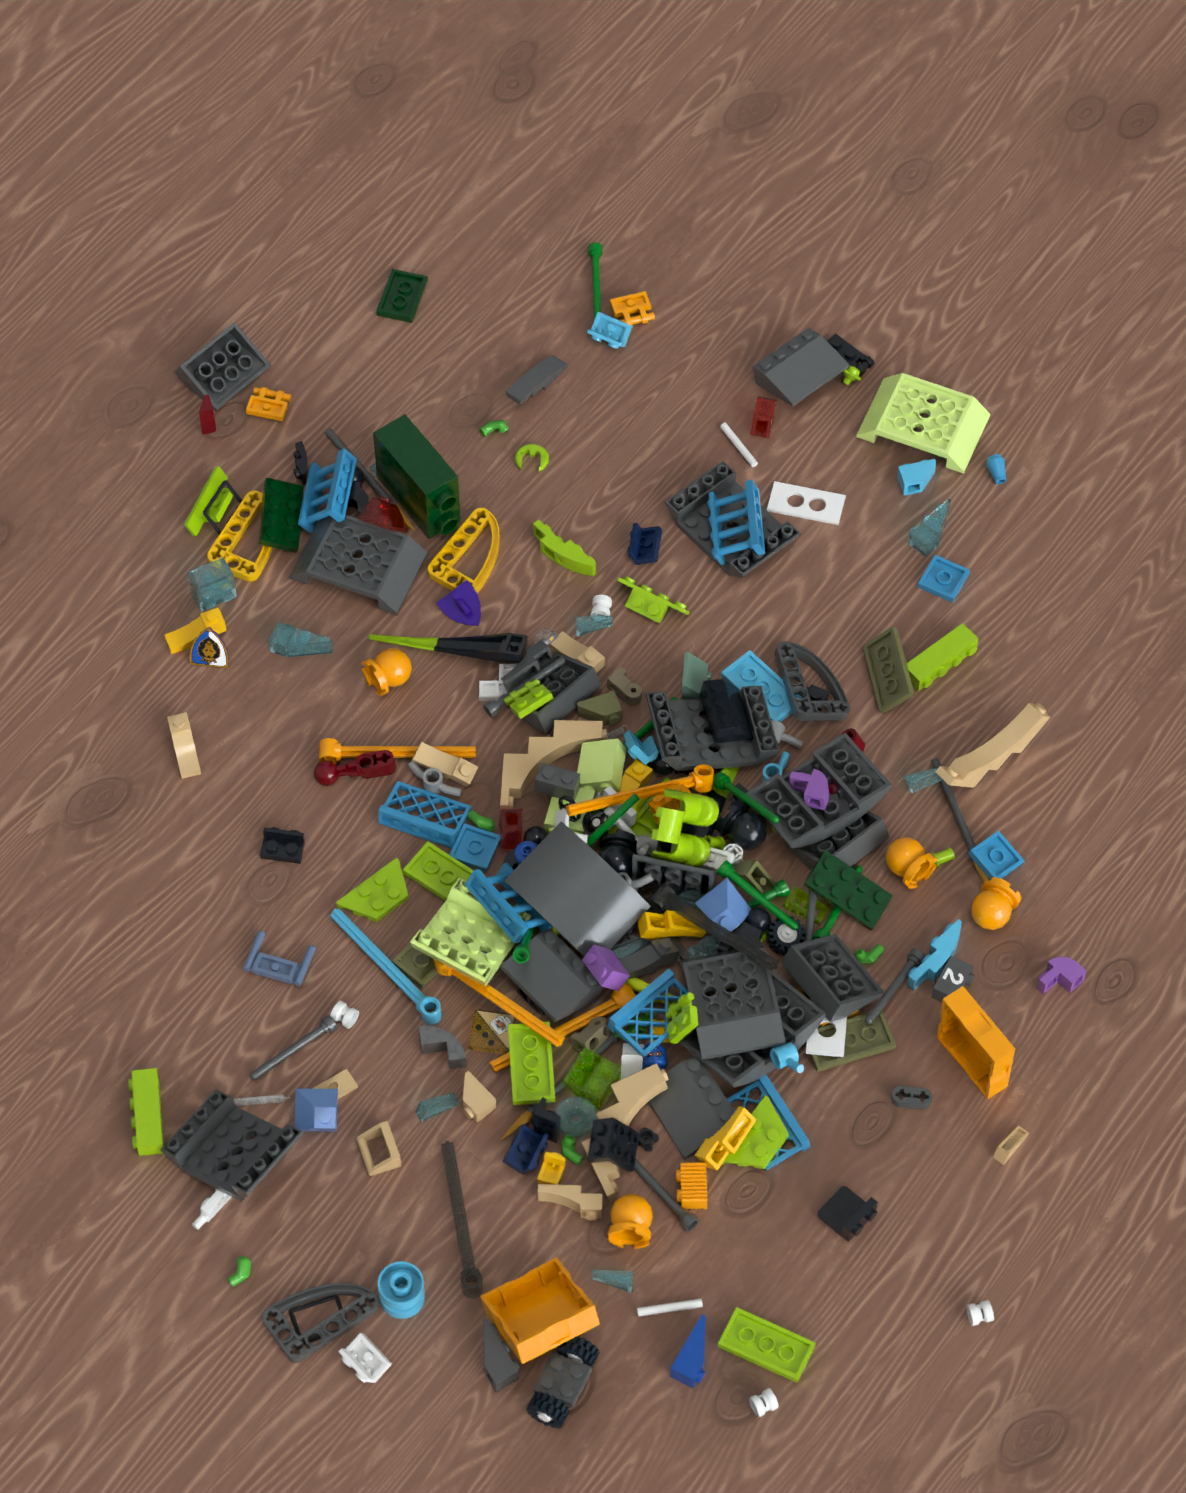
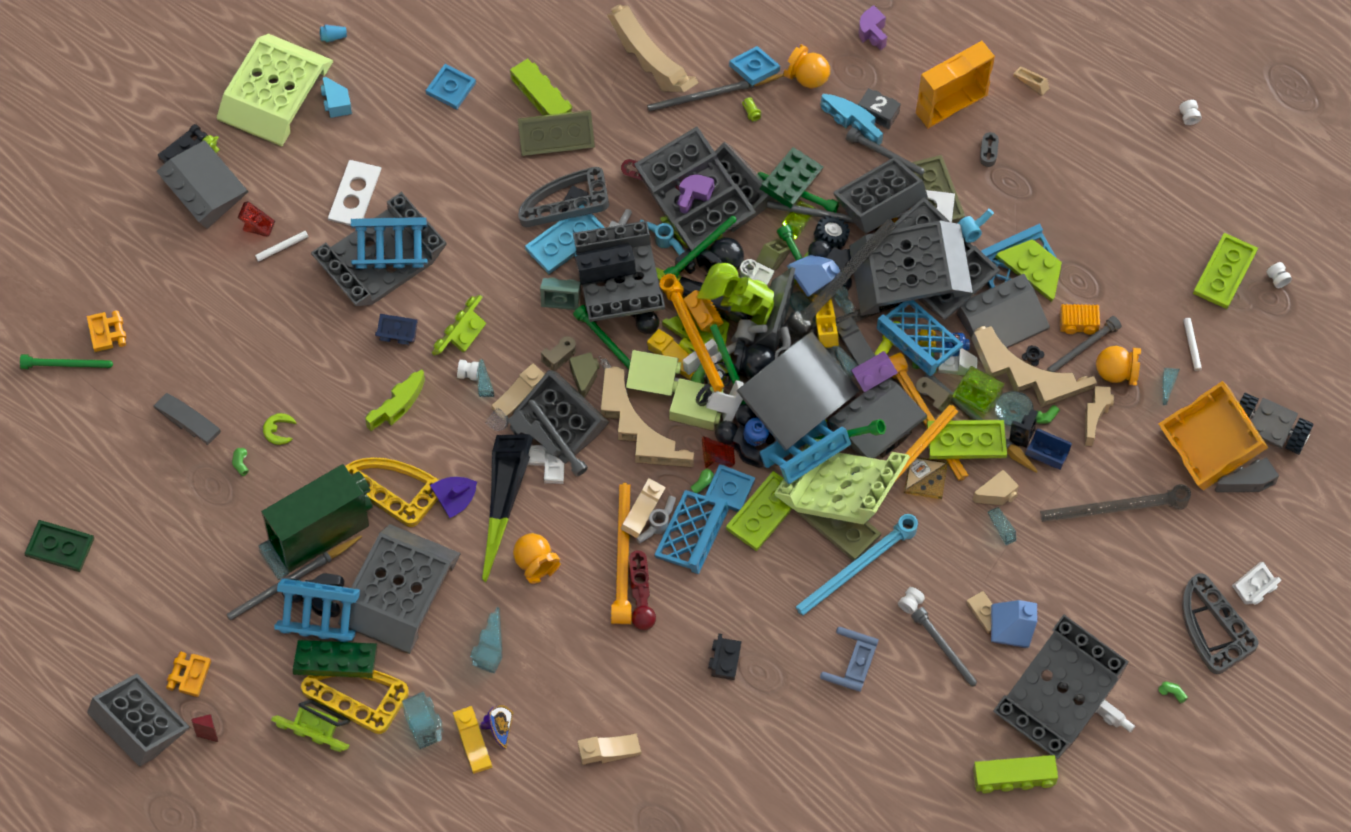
camera: 90 degrees left, 5 degrees up
(263, 1099) = (996, 673): white piece -> none
(301, 464) = (279, 640): black slope -> none
(378, 893) = (778, 573): lime wing -> none
(383, 514) = (350, 558): clear red slope -> none
(394, 1160) = (1046, 562): tan tile -> none
(401, 1290) = (1192, 551): medium azure wheel -> none
(438, 1040) = (949, 507): flat silver brick -> none
(526, 703) = (581, 426): lime plate -> none
(552, 1169) = (1068, 430): yellow bracket -> none
(557, 782) = (677, 404): dark grey brick -> none
(610, 330) = (133, 350): medium azure bracket -> none
(613, 1143) = (1049, 375): black bracket -> none
(644, 751) = (634, 334): medium azure bracket -> none
(683, 1017) = (941, 305): lime plate -> none
(689, 1364) = (1240, 326): blue slope -> none
(726, 870) = (778, 266): green piece -> none
(726, 1140) = (1049, 297): yellow slope -> none
(847, 1212) = (1103, 201): black bracket -> none
(869, 957) = (851, 171): bright green arm -> none
(908, 860) = (760, 129): light orange tile -> none
(922, 779) = (670, 115): clear light blue piece -> none
(928, 533) = (400, 90): clear light blue slope -> none

